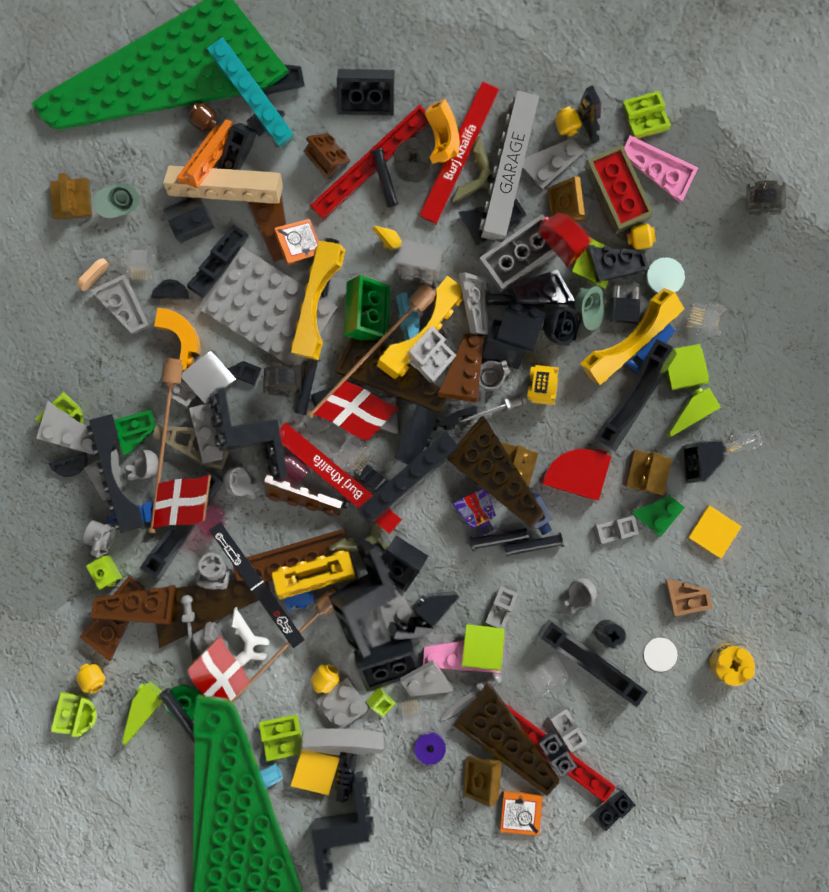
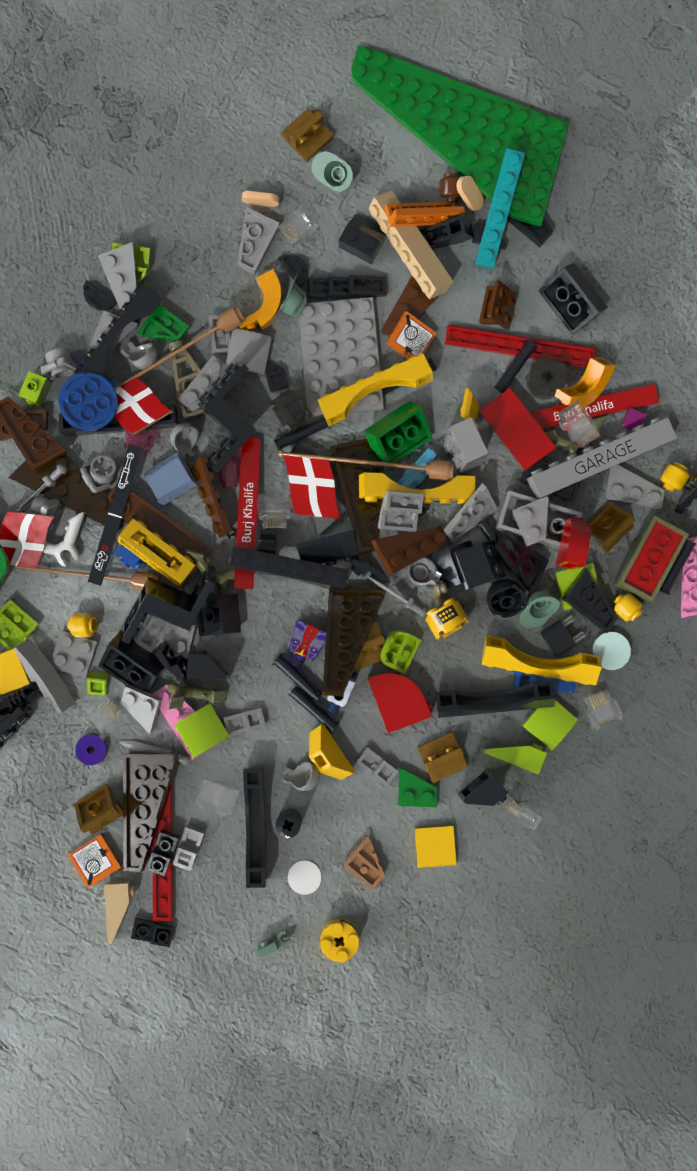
camera: 50 degrees right, 0 degrees up
(148, 536) = (88, 401): none -> blue tile
(197, 309) = (294, 302): none -> sand green piece
(219, 106) = (470, 193): none -> light nougat tile
(262, 518) = (170, 478): none -> sand blue slope
(436, 214) = (517, 429): none -> red tile
(441, 636) = (185, 690): none -> olive piece
(470, 162) = (578, 424): none -> clear brick
(496, 118) = (633, 419): none -> magenta slope
(516, 376) = (437, 592): none -> dark tan arm
(519, 257) = (532, 520): none -> light grey wing
(540, 441) = (399, 650): none -> lime slope
(566, 818) = (117, 901): none -> tan slope
(578, 561) = (327, 754): none -> yellow slope
(634, 159) = (677, 566): none -> black pin
(695, 723) = (268, 946): none -> sand green plate

